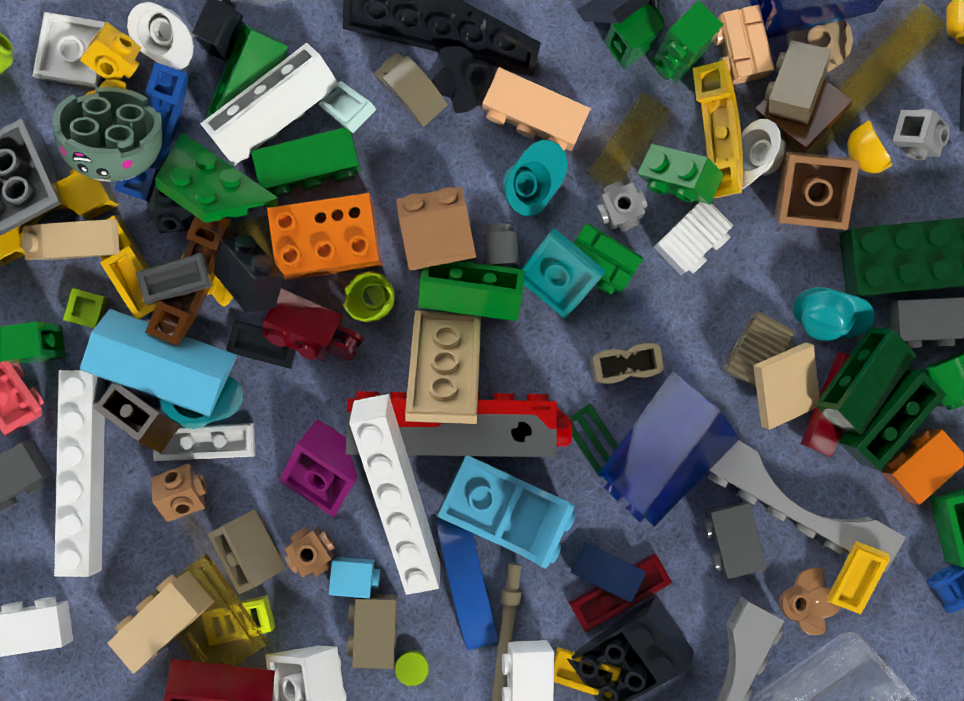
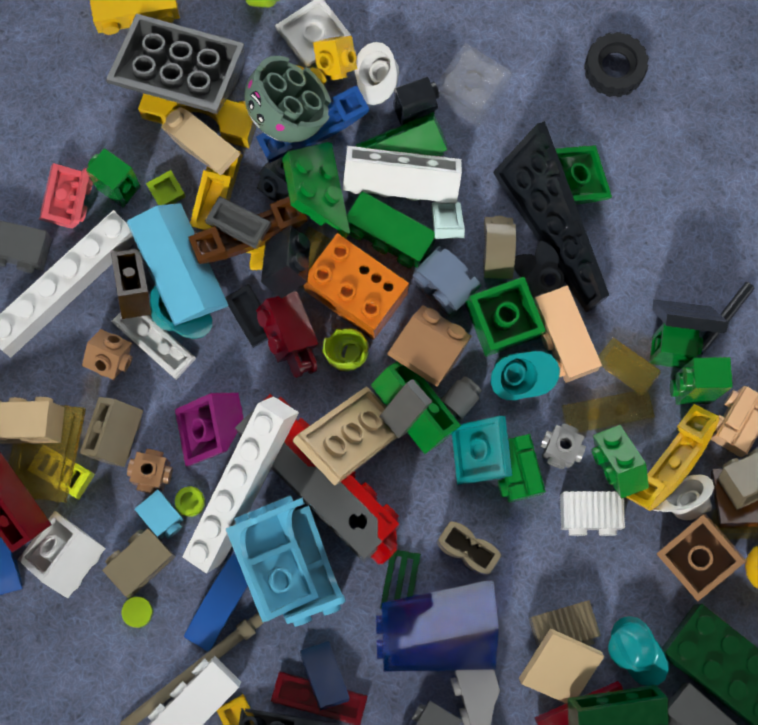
camera: 45 degrees right, 10 degrees down
(365, 541) = (189, 501): none -> lime tile
(394, 158) = (445, 279): none -> sand blue brick
(468, 300) = (405, 408): none -> dark grey tile
(472, 143) = (504, 316): none -> green brick
(481, 528) = (272, 558): none -> medium azure bracket
(611, 88) = (628, 366): none -> clear yellow tile

